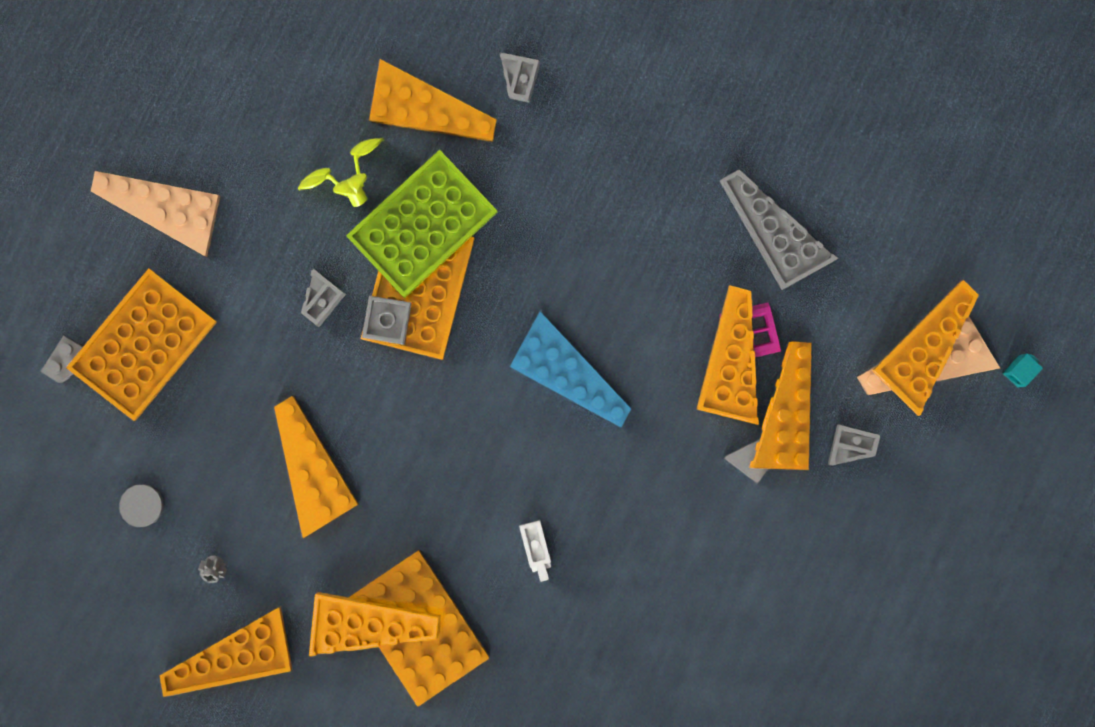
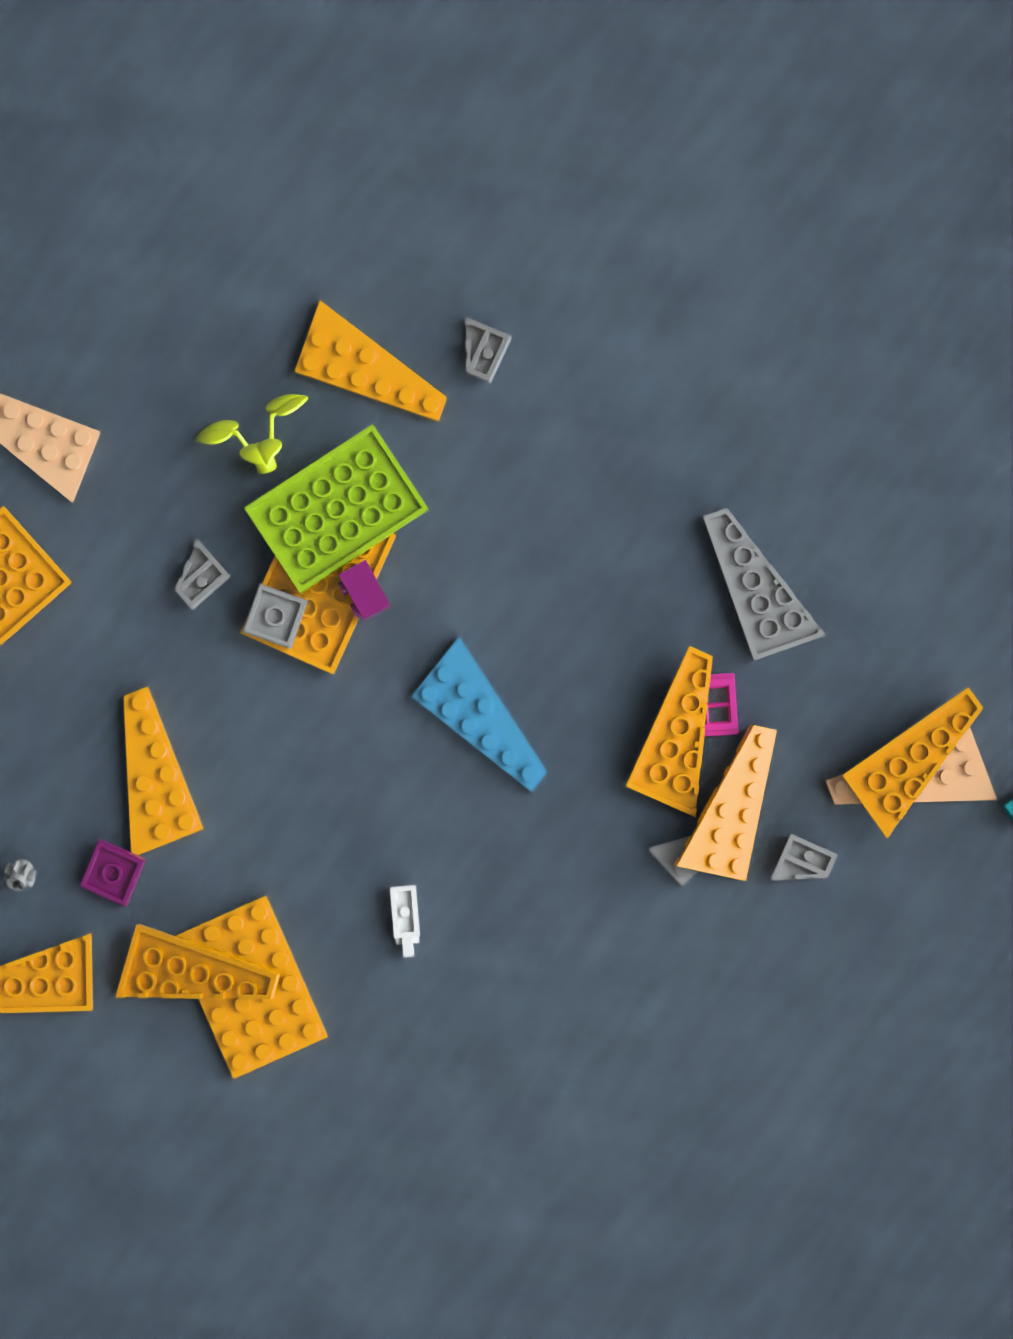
camera: 15 degrees right, 0 degrees up
(289, 553) = (112, 872): none -> magenta plate
(456, 286) = (364, 590): none -> magenta brick

